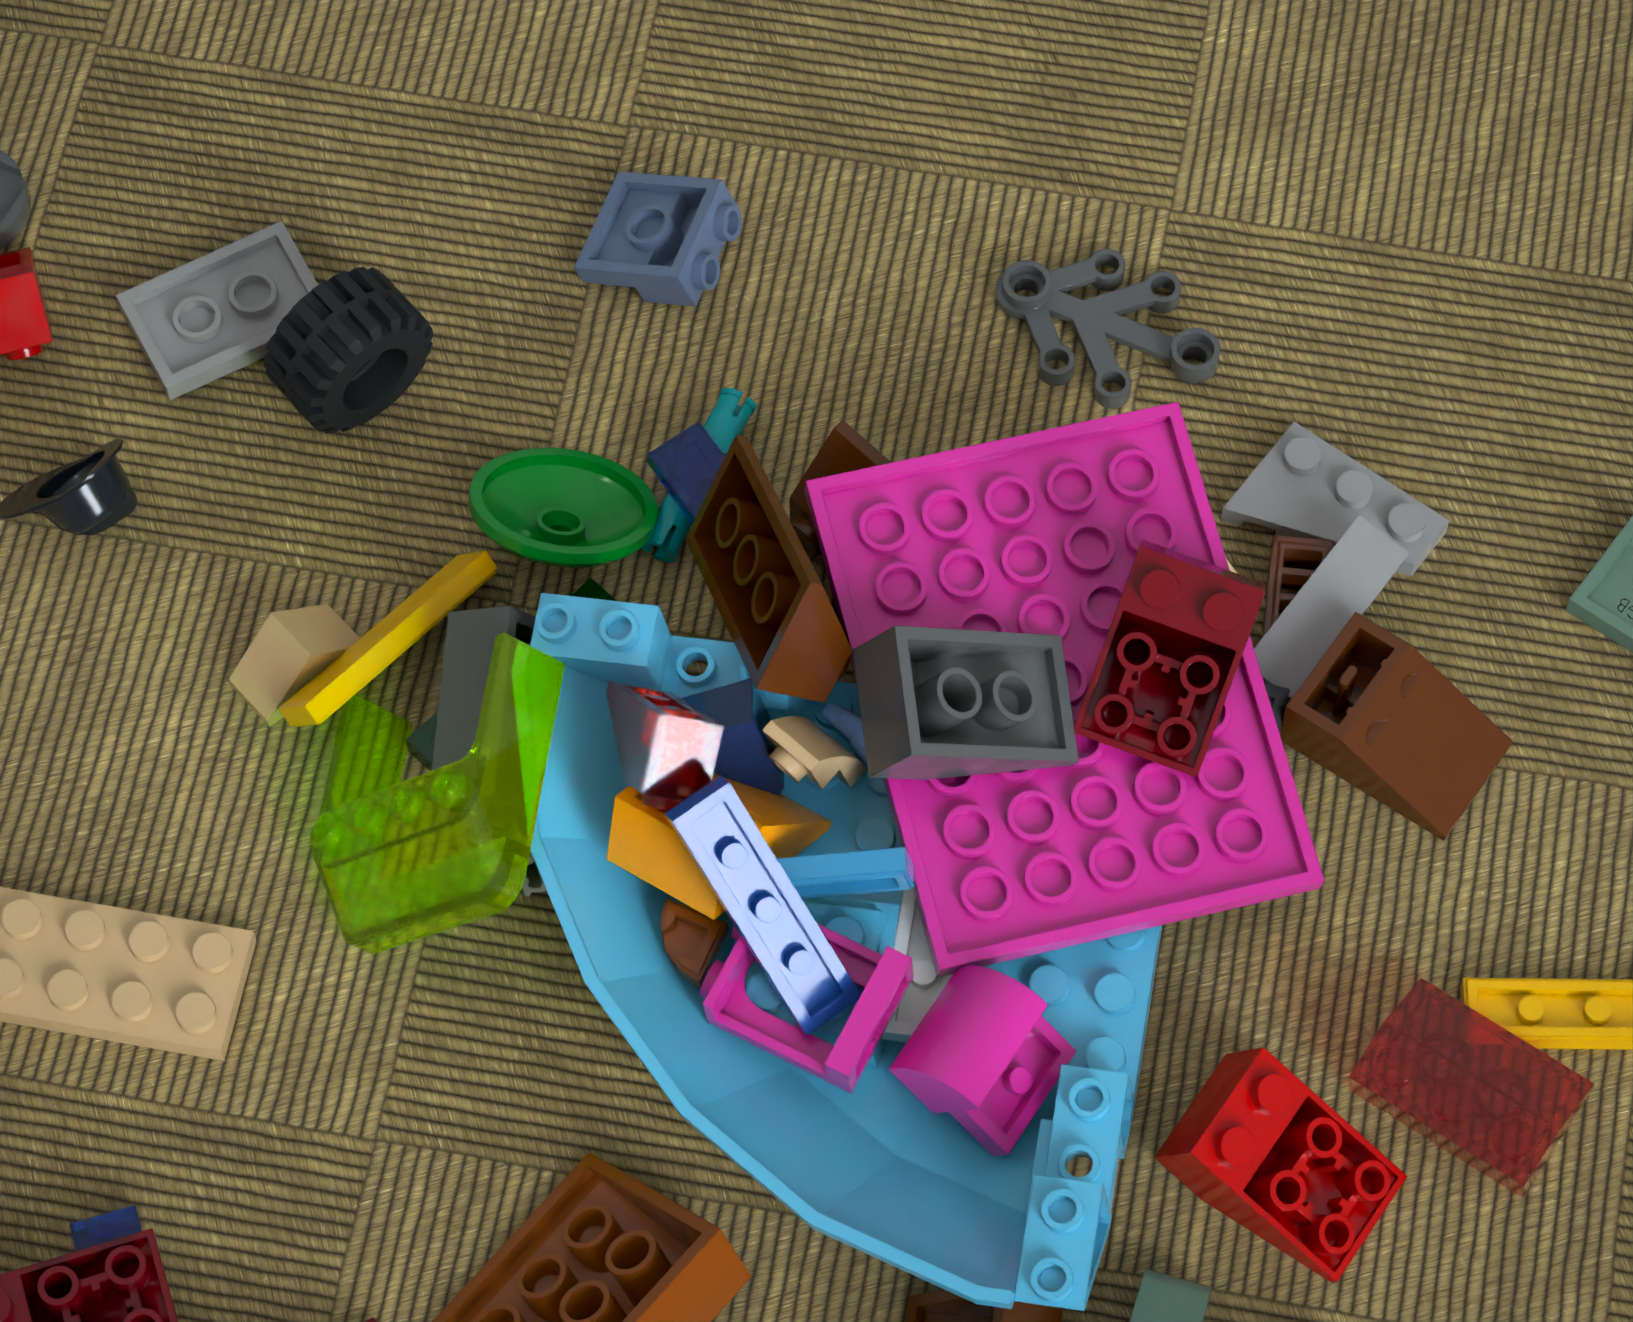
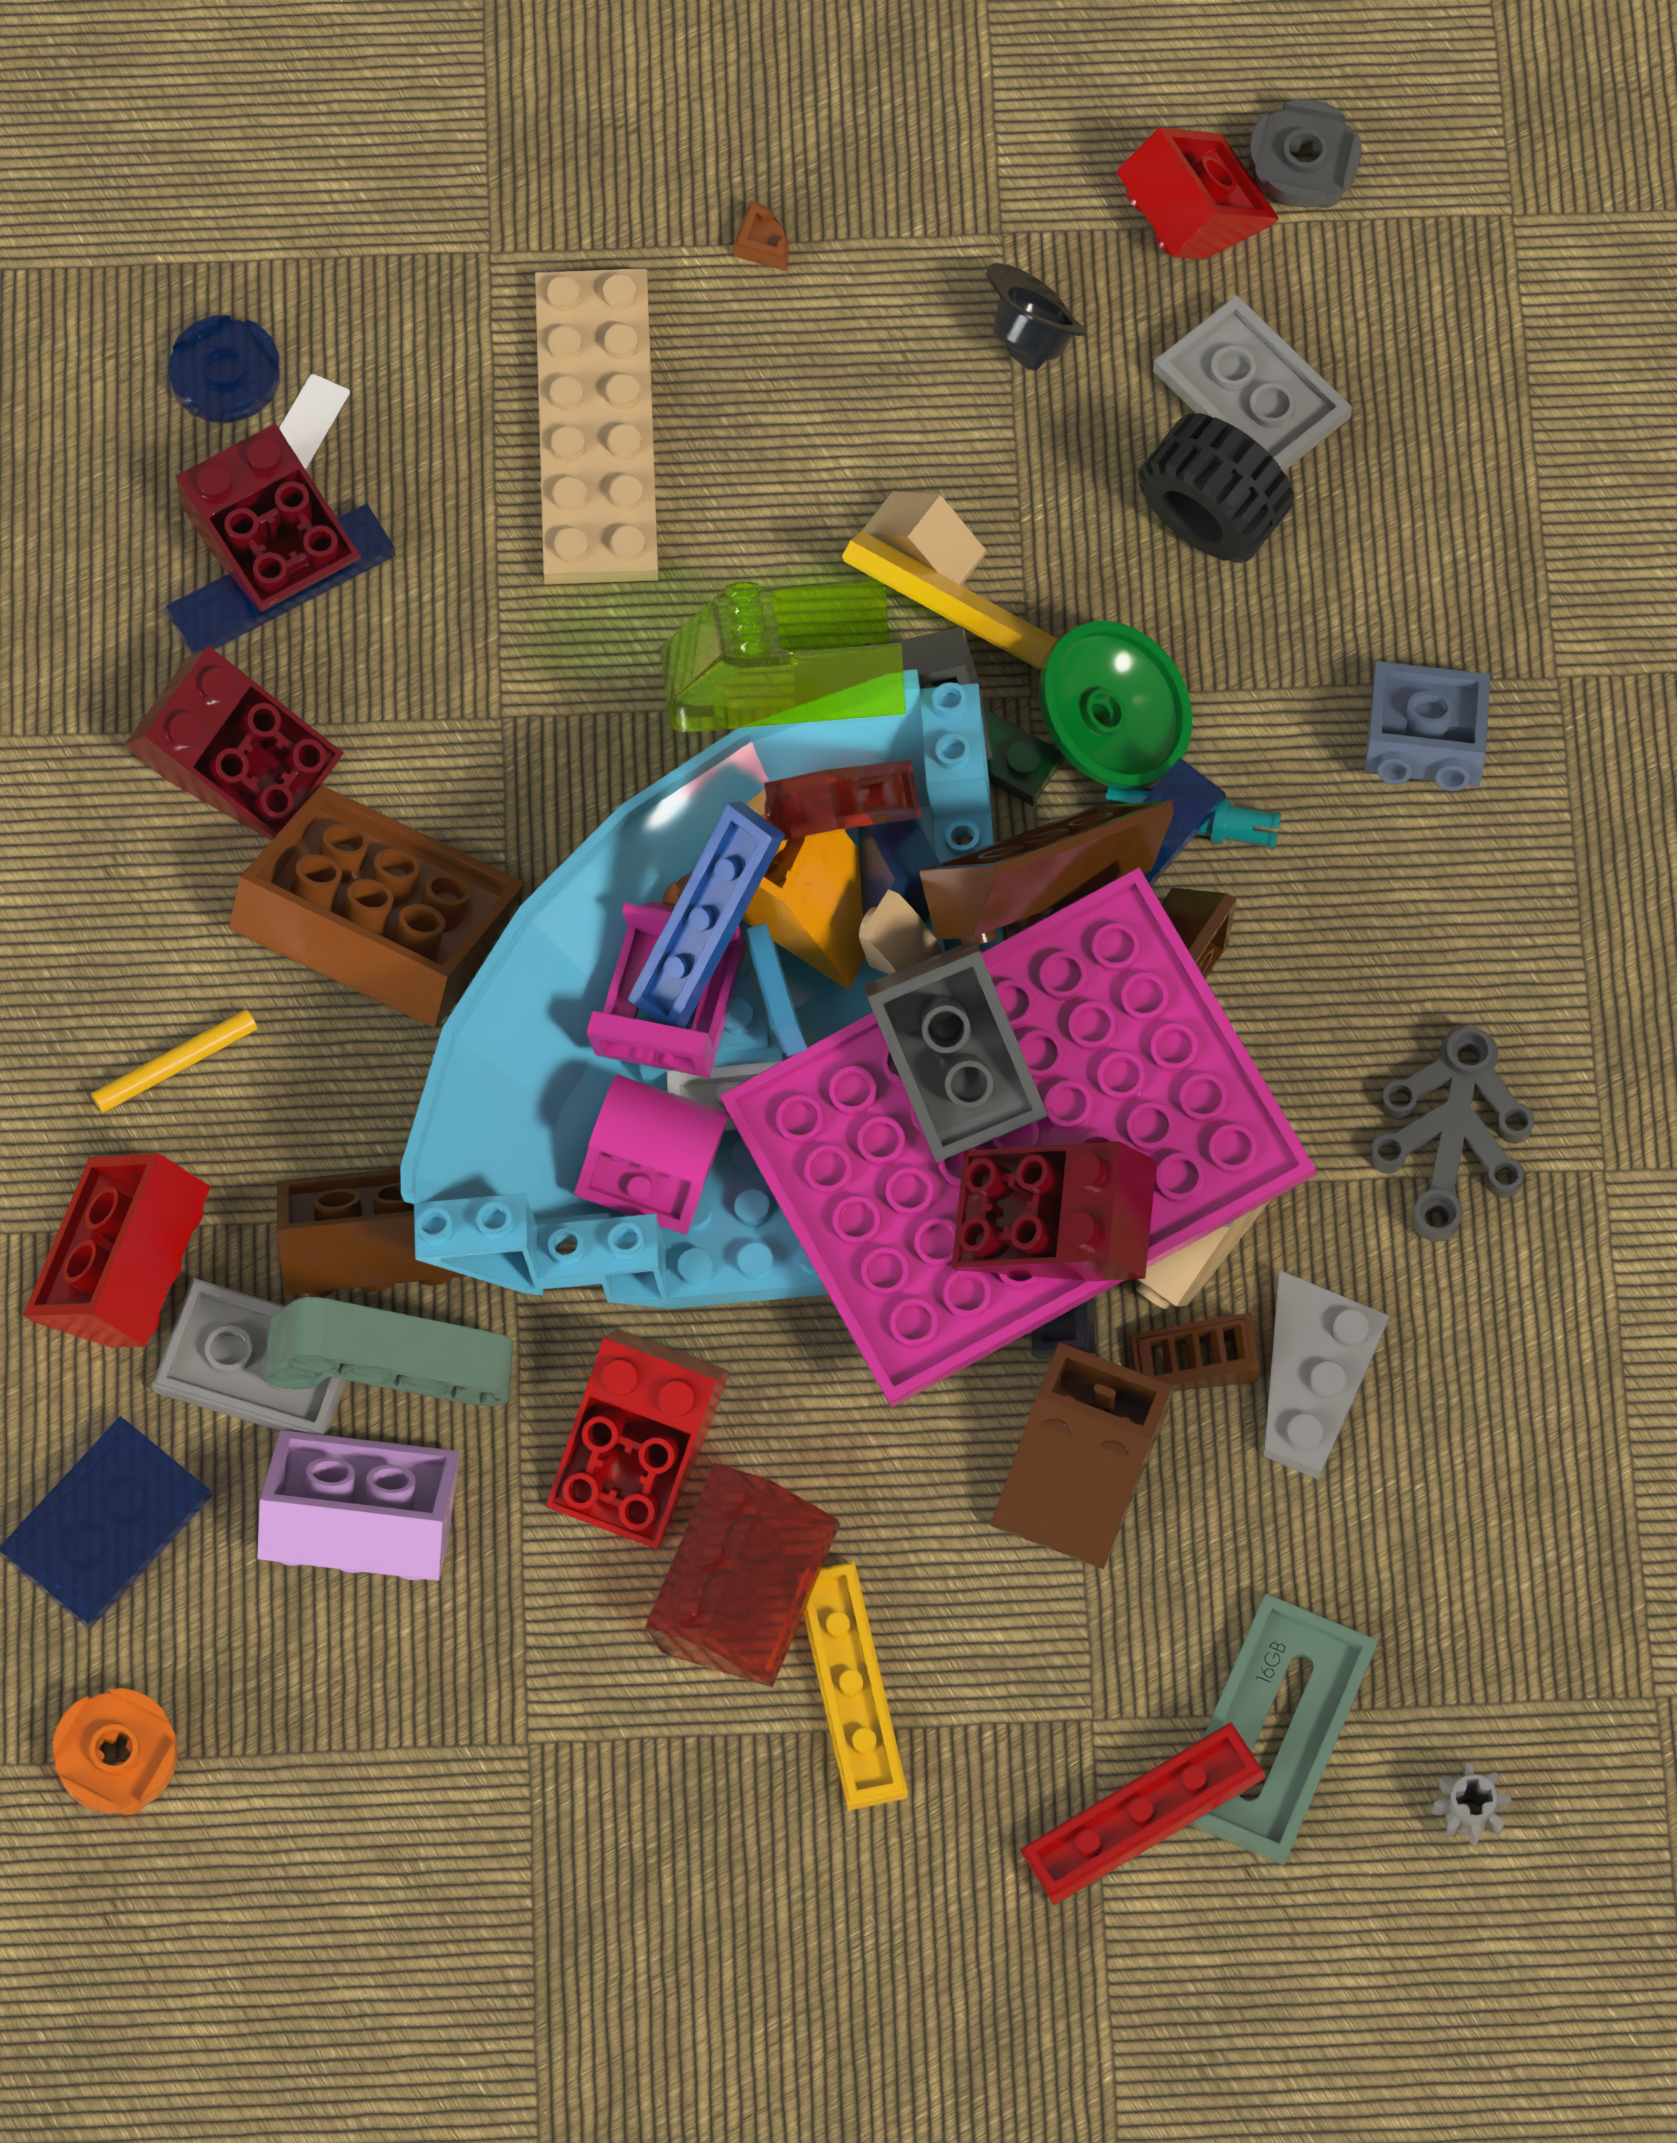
camera: 75 degrees right, 5 degrees up
(1339, 586) = (1199, 1374): light grey tile -> none

